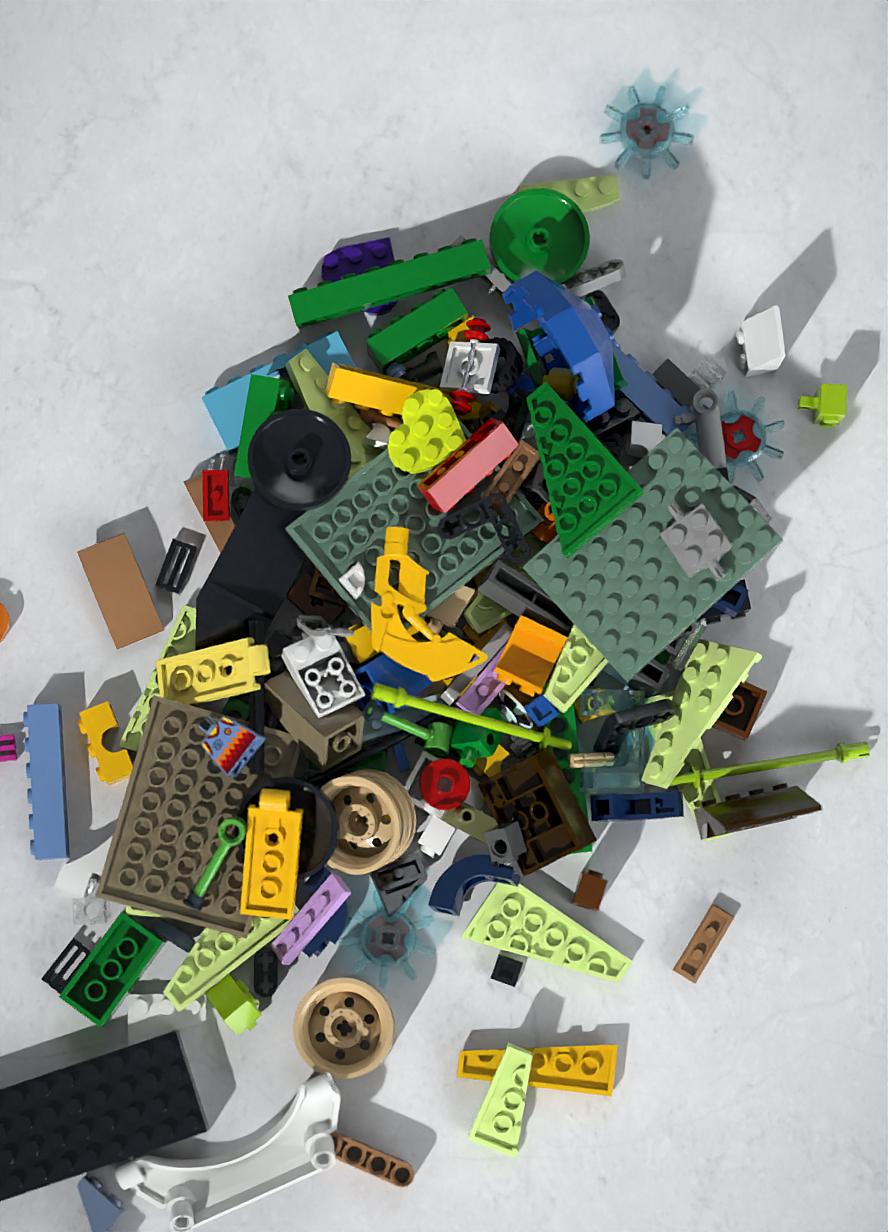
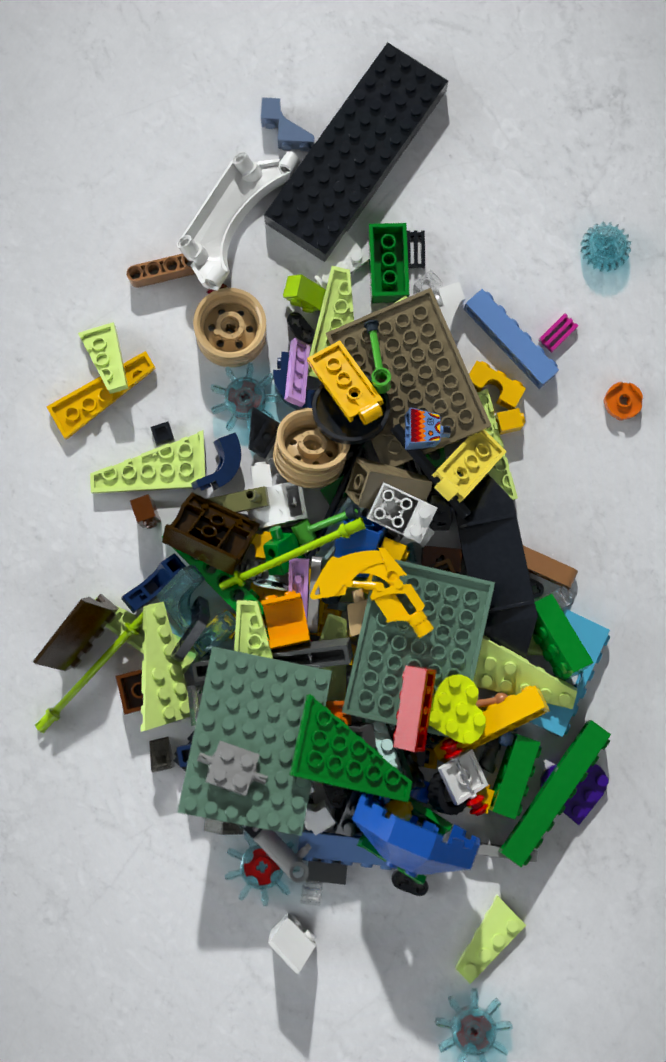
camera: 140 degrees right, 0 degrees up
(120, 590) = (560, 478): medium nougat slope -> none
(123, 692) = (510, 421): none -> yellow brick
(169, 586) = (533, 522): black tile -> none
(173, 934) = (368, 305): black bush -> none
(215, 495) = (552, 575): red plate -> none
(299, 459) = (521, 630): black dish -> none
(308, 623) = (438, 537): light grey piece -> none
(354, 580) = (427, 581): white tile -> none
(379, 436) = (485, 688): white tile -> none
(401, 757) = (318, 507): blue tile -> none
(451, 798) = (278, 495): red tile -> none
(485, 516) = (378, 685): black beam -> none
(505, 842) = (216, 500): dark grey brick -> none
(512, 474) = (382, 722): medium nougat tile -> none
(539, 233) = (486, 900): green dish -> none
(541, 710) = (254, 593): blue tile -> none
(591, 759) = (202, 588): tan axle -> none
(596, 277) = (436, 888): light grey beam -> none
(703, 943) = (56, 536): medium nougat tile -> none
(759, 625) = (161, 754): none -> clear smoke slope
(827, 405) = (220, 933): lime brick -> none

